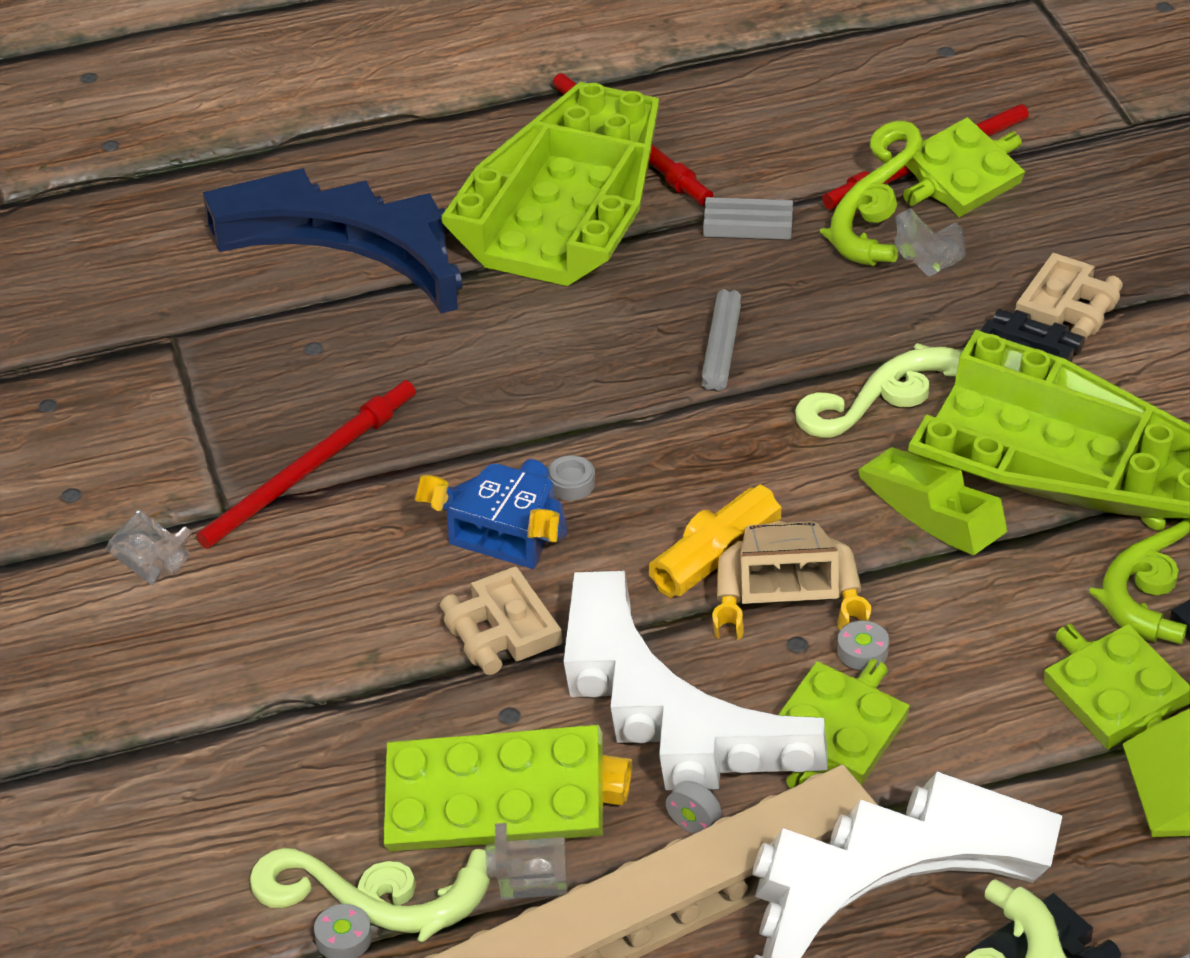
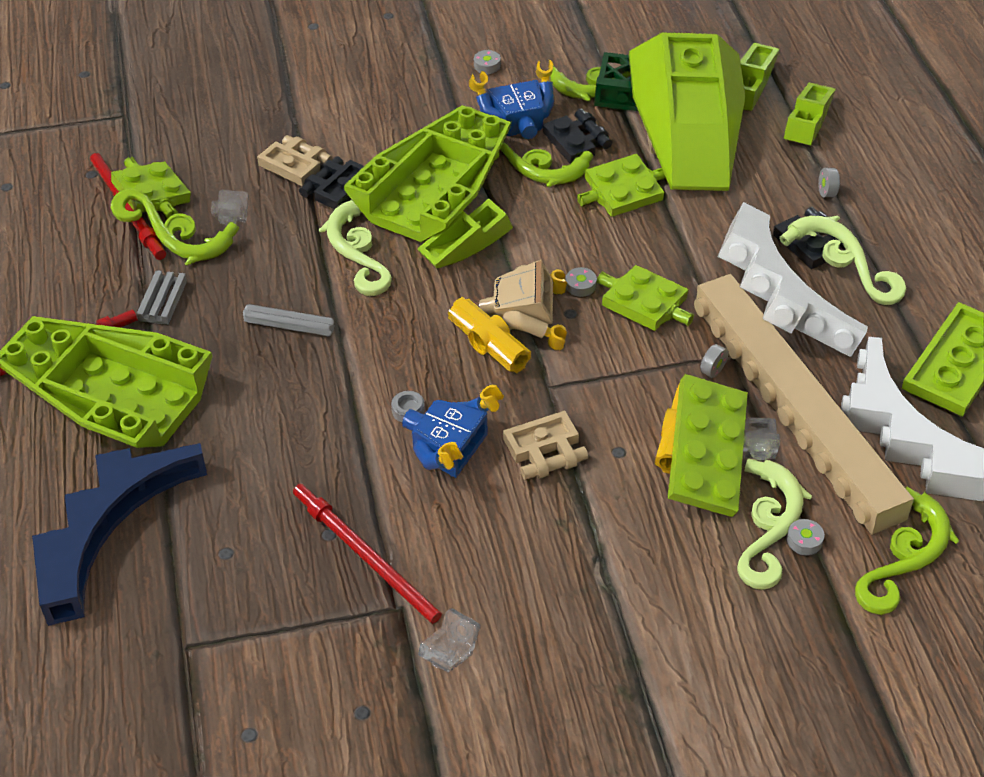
camera: 85 degrees left, 5 degrees up
(651, 704) = (591, 388): white arch -> none

